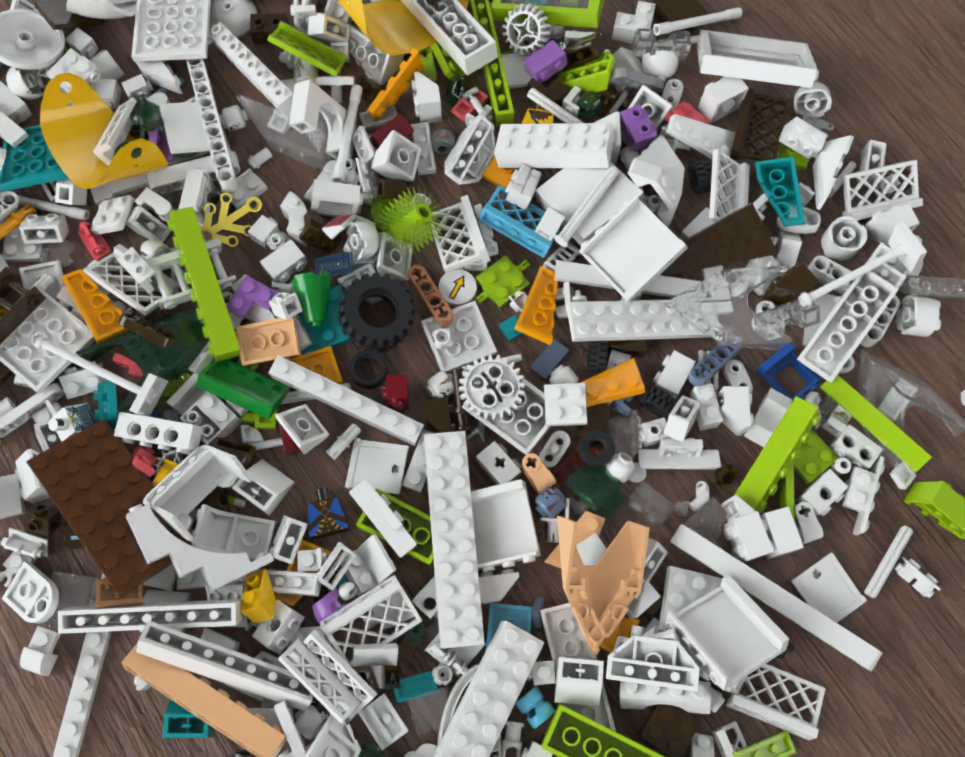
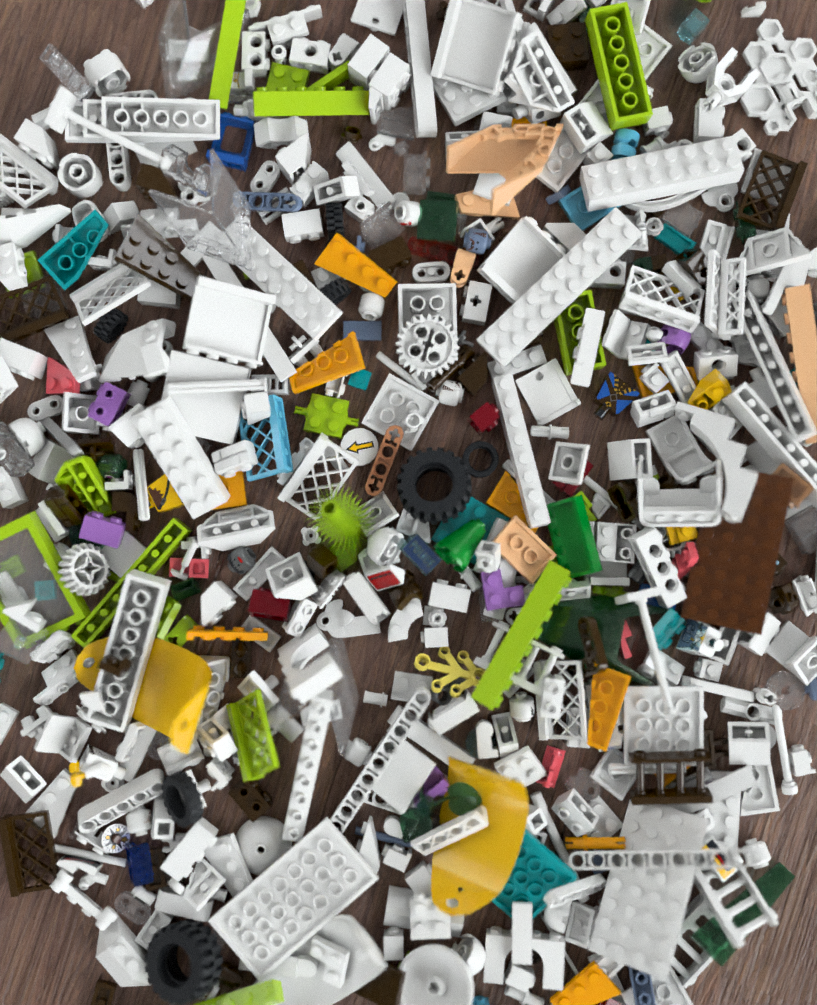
camera: 125 degrees left, 15 degrees up
(340, 167) = (338, 615): white piece -> none
(565, 404) = (396, 282): white plate -> none
(605, 439) = (410, 224): black tyre -> none

